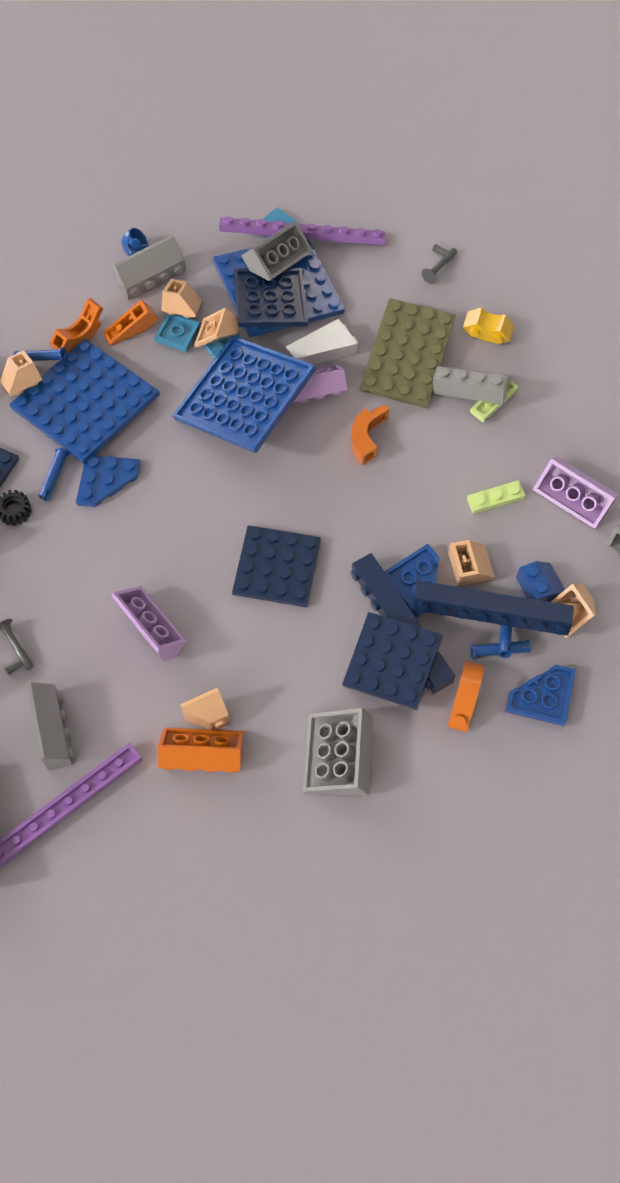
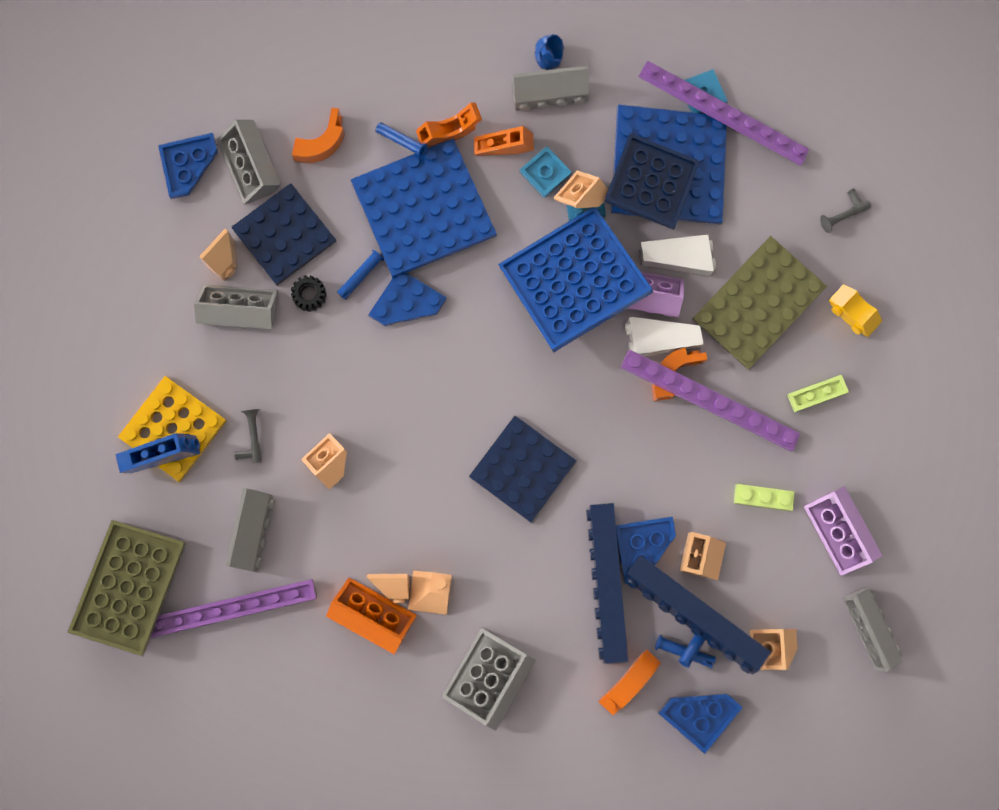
camera: 25 degrees right, 15 degrees up
(19, 374) = (372, 153): light nougat slope -> none
(96, 635) = (327, 461): none -> light nougat slope
(150, 621) = (379, 474): lavender slope -> none
(180, 299) = (564, 139): light nougat slope -> none
(246, 703) = (430, 592): none -> light nougat slope
(278, 252) = (683, 133): light grey slope -> none
(339, 412) = (660, 337): none -> white slope
(392, 660) = (579, 618): dark blue plate -> none
(408, 439) = (710, 400): none -> medium lavender plate
(471, 384) = (804, 367): light grey slope -> none
(539, 581) = (758, 607): blue slope -> none

